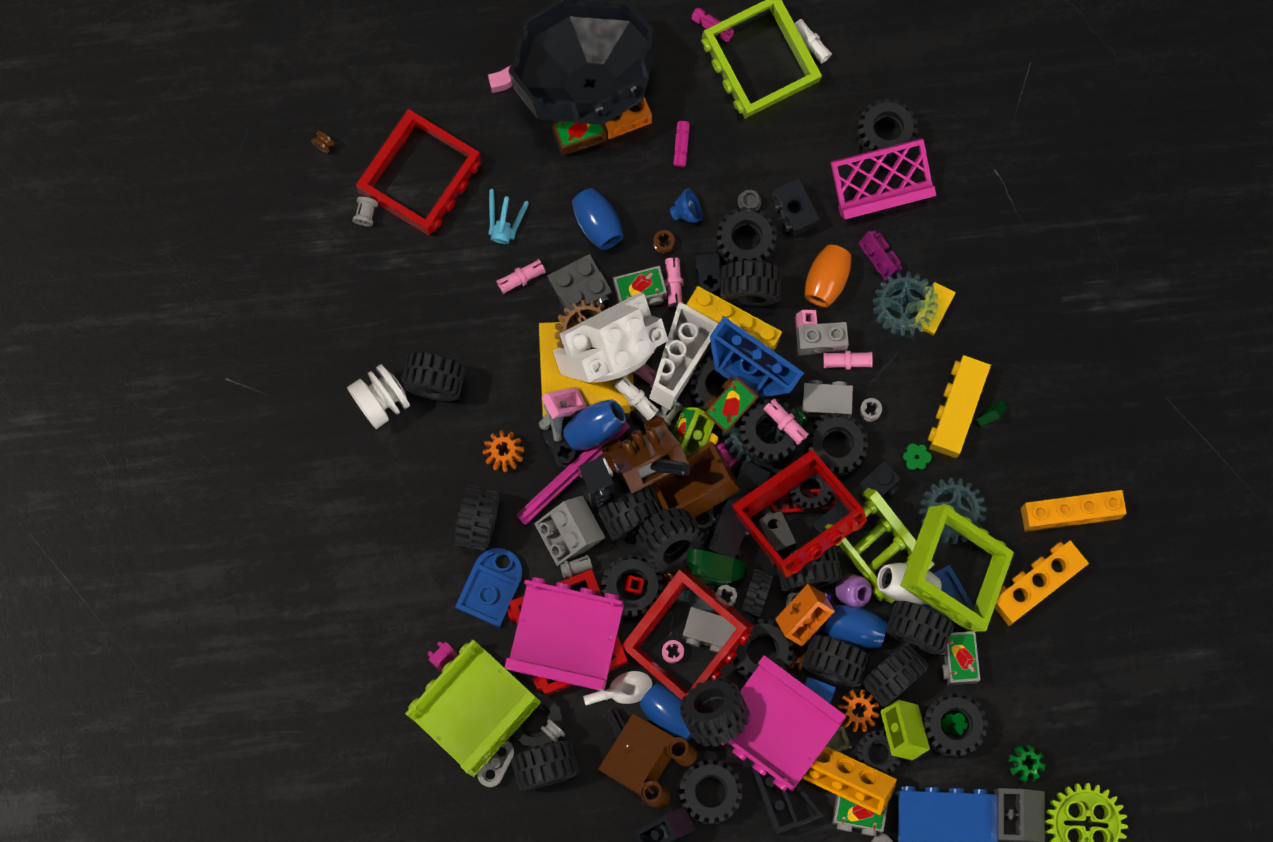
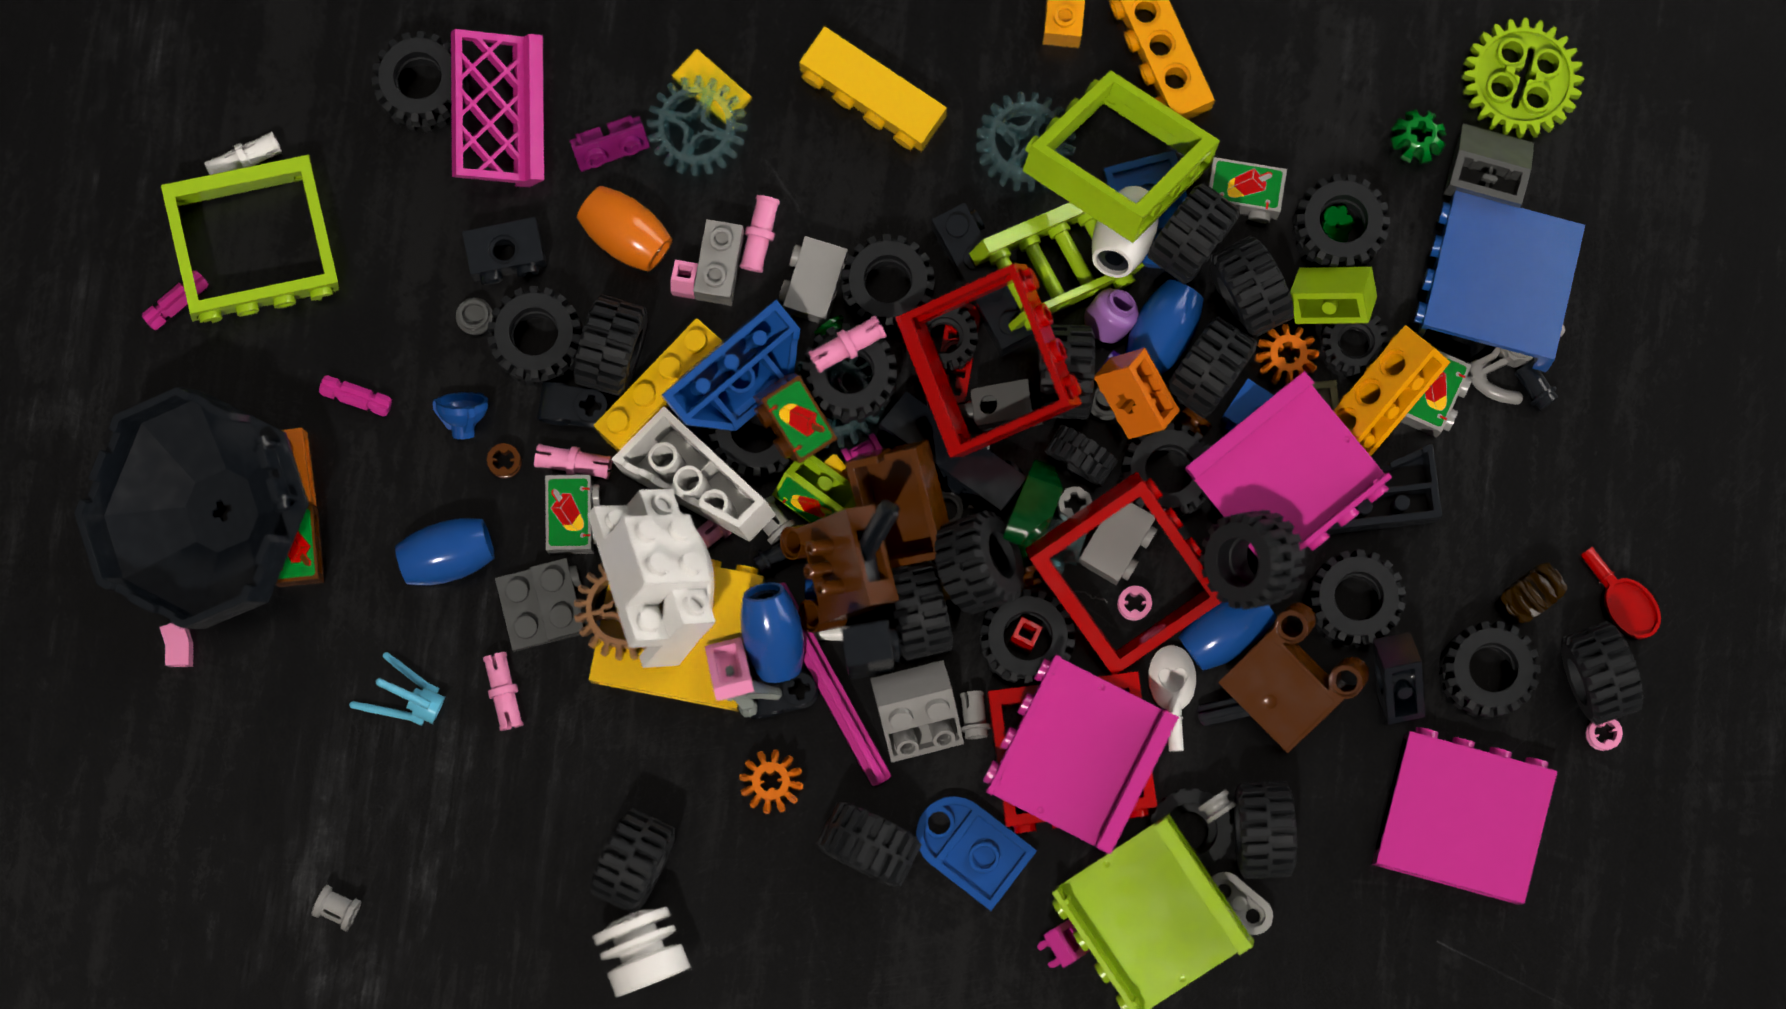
camera: 75 degrees left, 5 degrees up
(322, 142) = (205, 948): reddish brown bush -> none
(387, 153) = (252, 853): red window -> none
(636, 397) = (745, 560): white pin -> none
(872, 401) = (850, 211): light grey bush -> none
(920, 451) = (935, 163): green plant -> none
(992, 413) = (893, 45): dark green tile -> none

